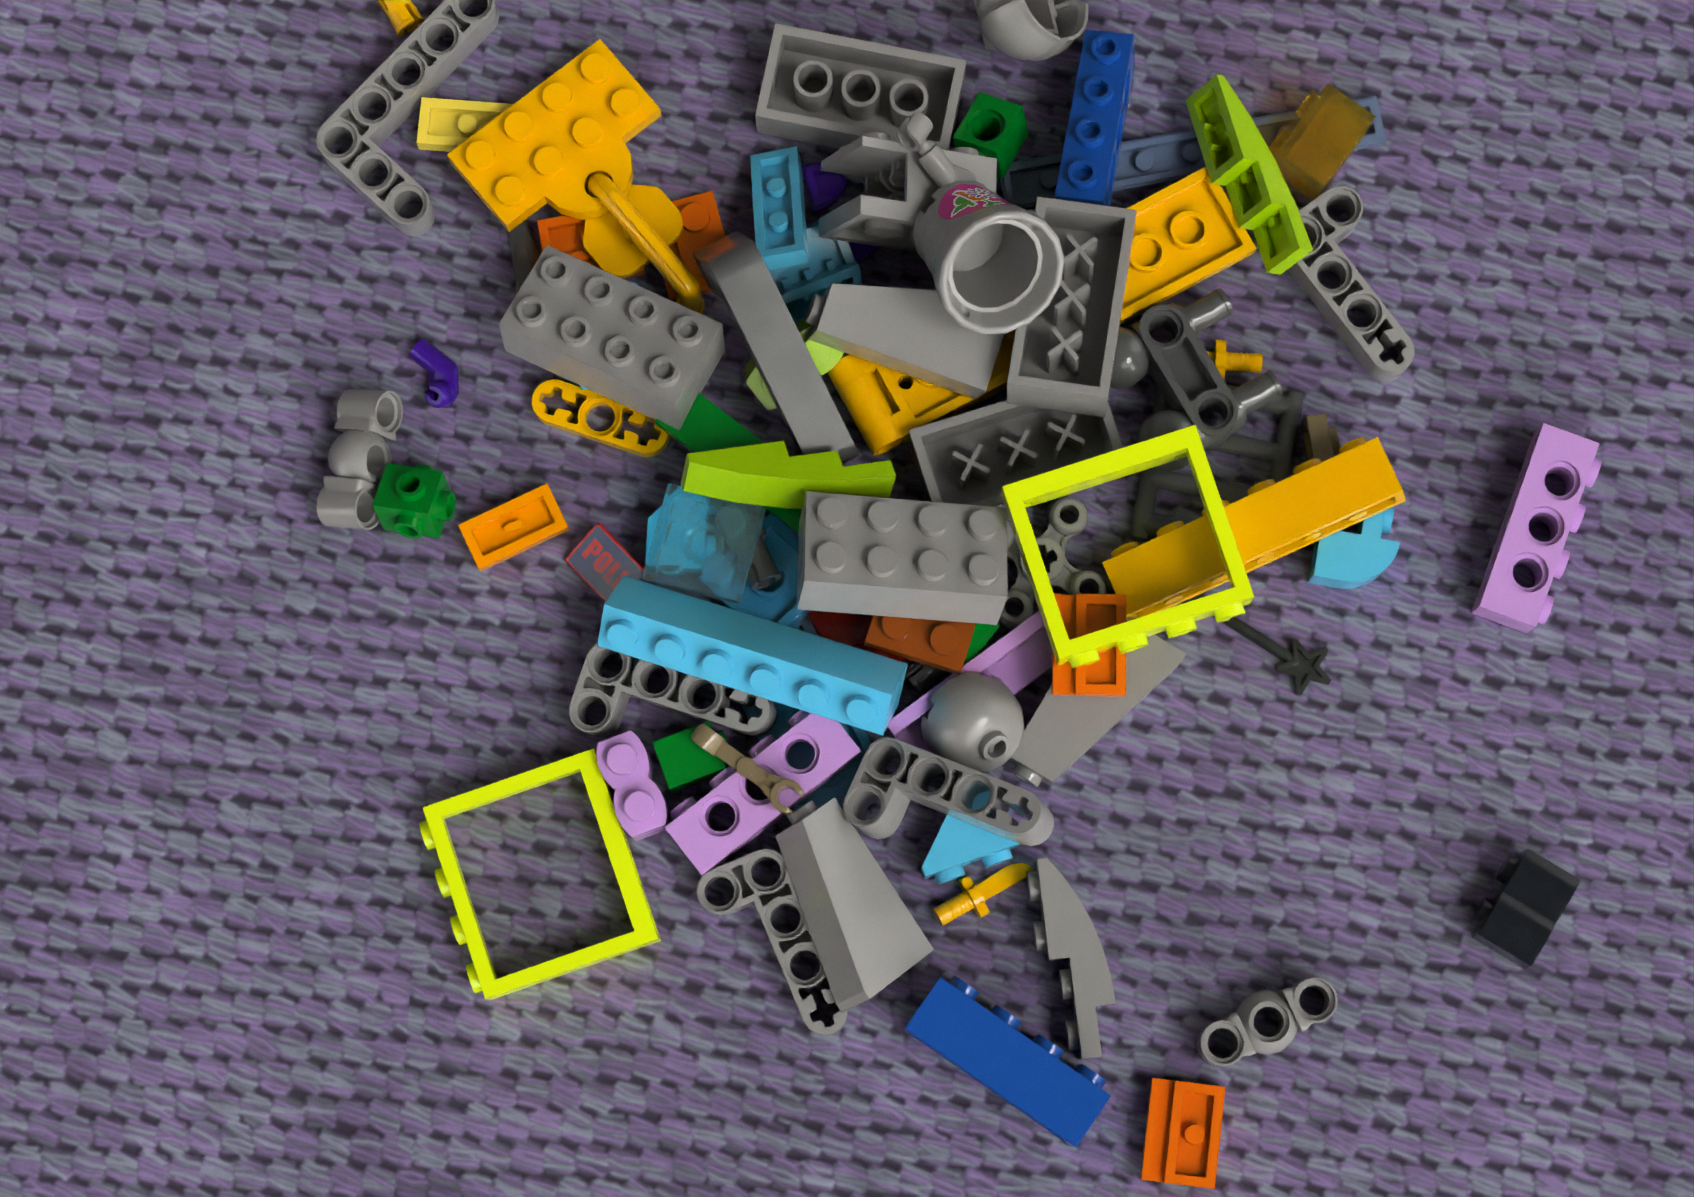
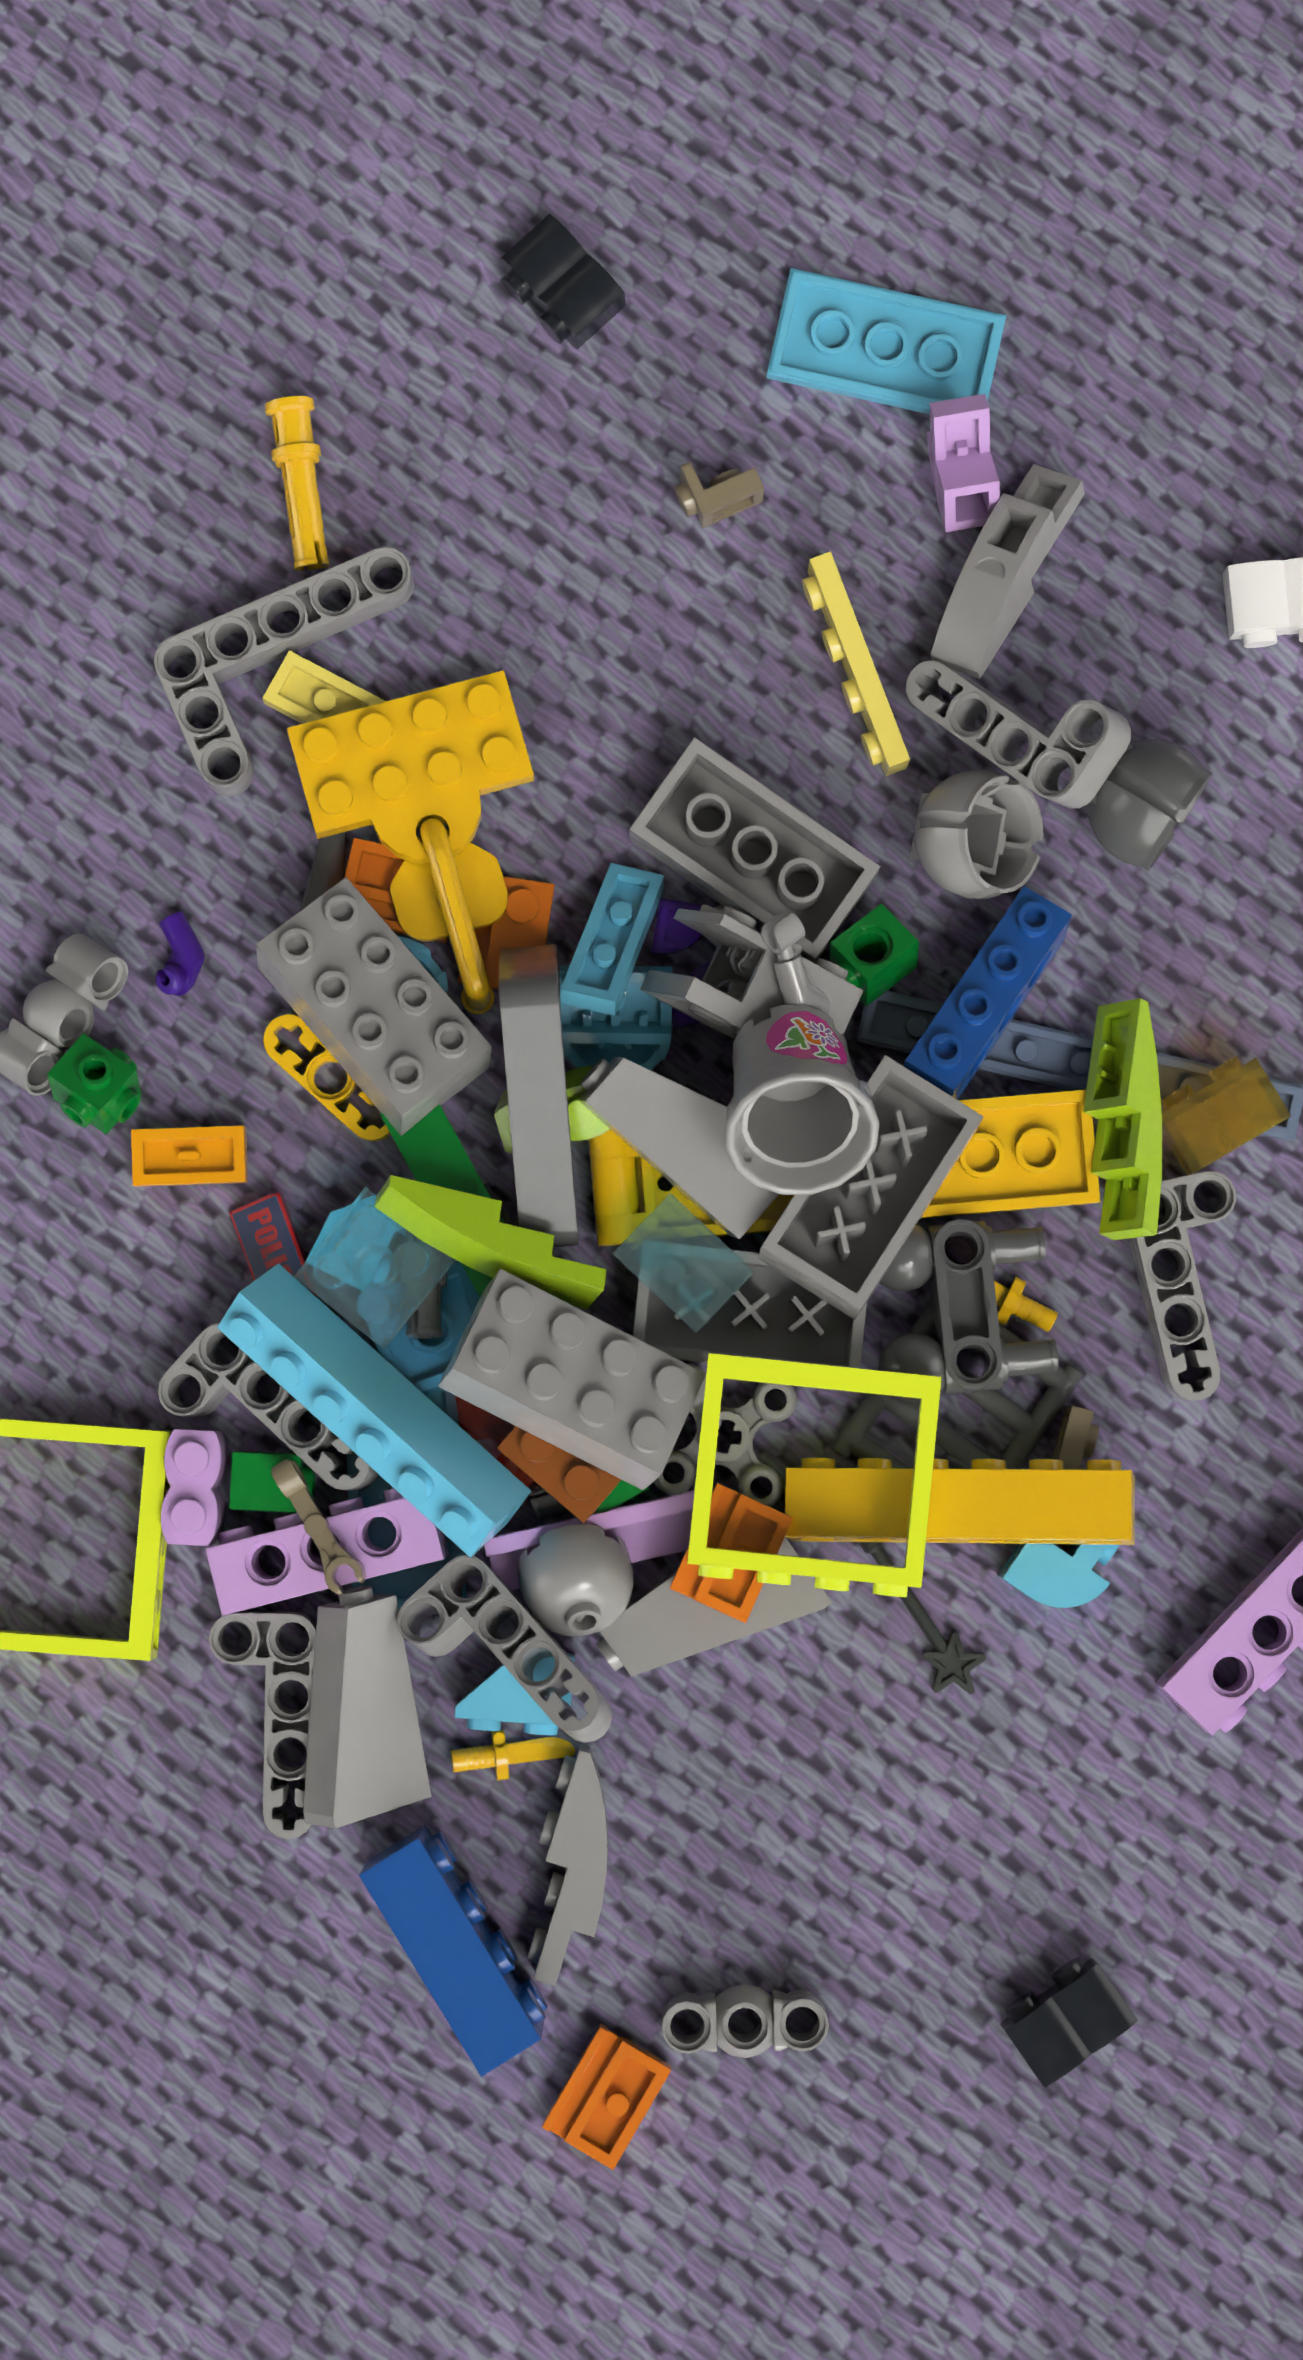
camera: 20 degrees right, 5 degrees up
(949, 430) = (683, 1263): none -> clear light blue plate

